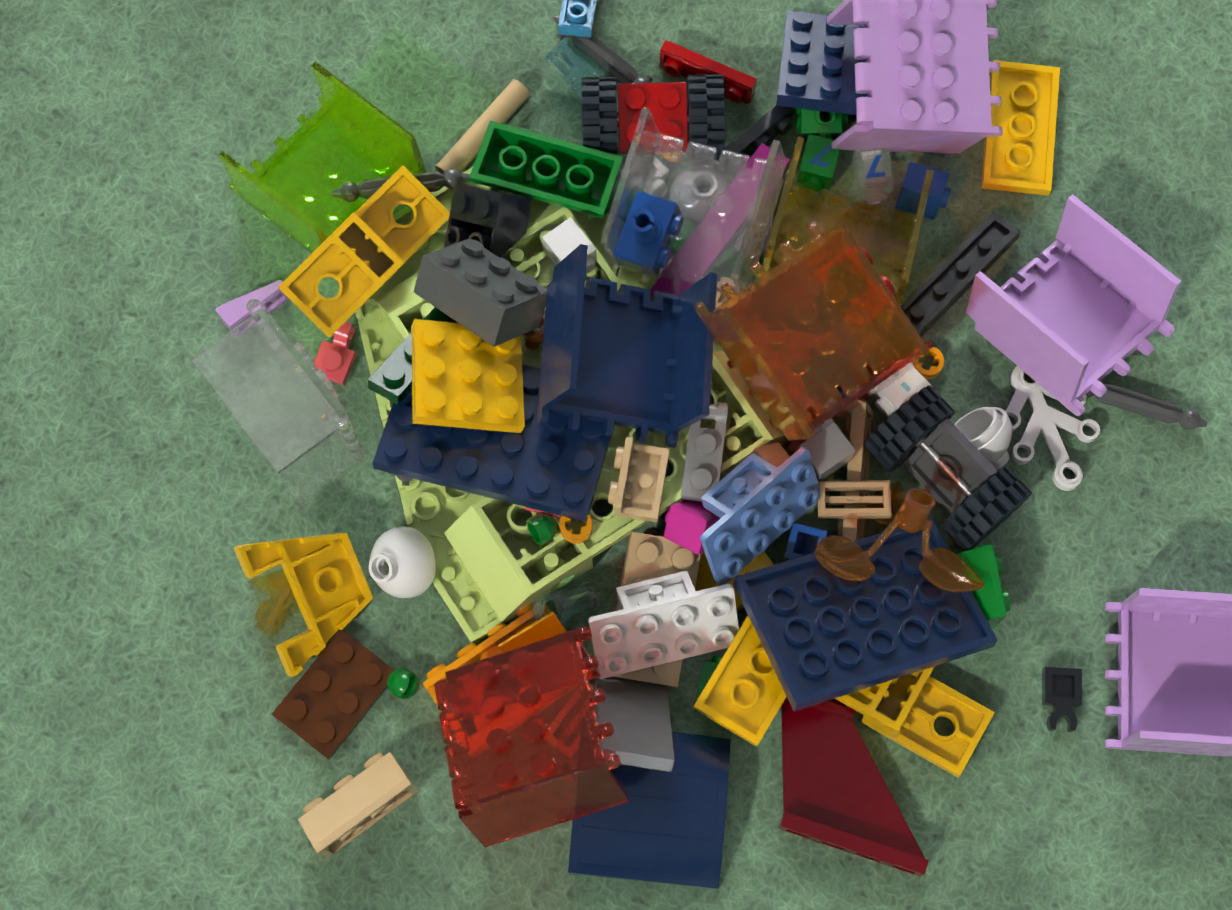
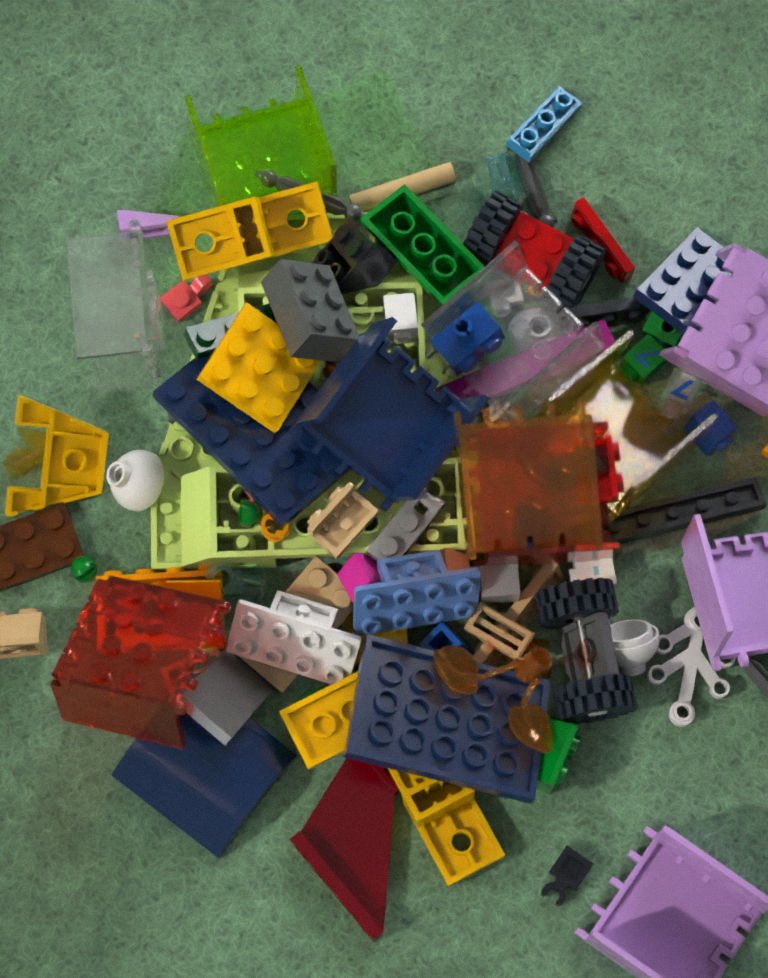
camera: 30 degrees right, 0 degrees up
(933, 371) = (630, 554): light orange bush -> none

